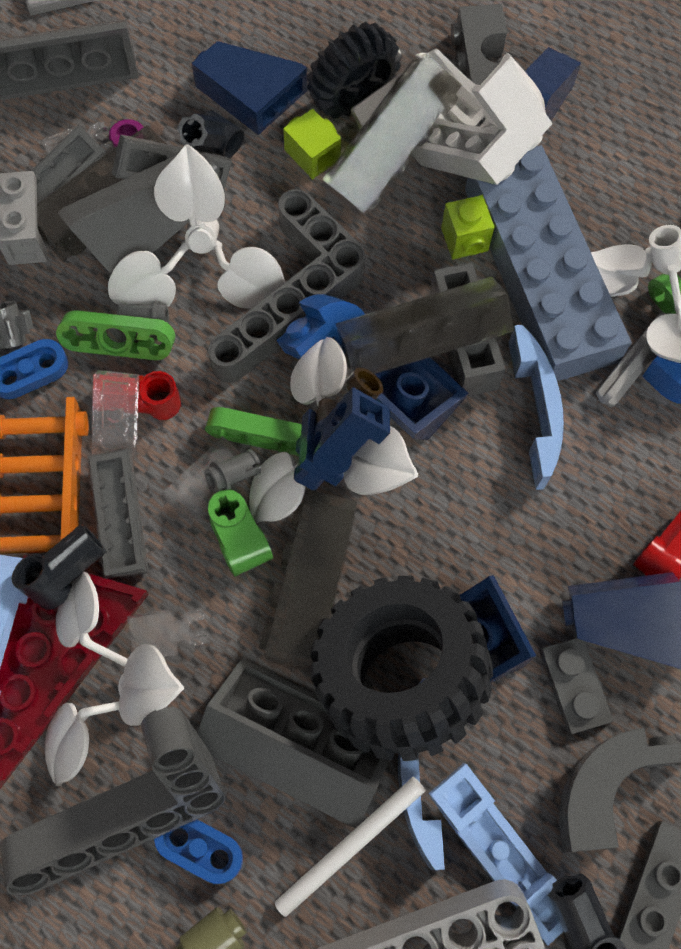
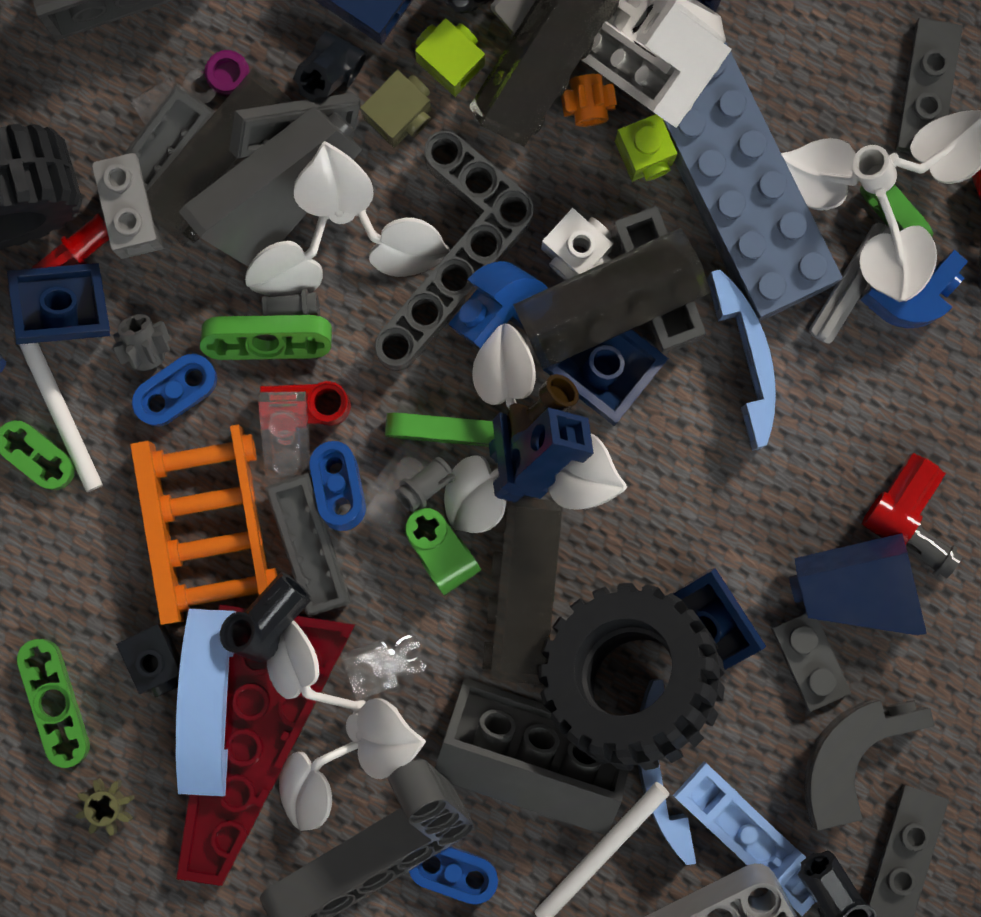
camera: 10 degrees left, 15 degrees up
(153, 473) = (337, 488): none -> blue plate
(261, 174) = (398, 108): none -> olive brick
(396, 286) = (572, 232): none -> white brick
(423, 187) = (588, 100): none -> orange gear

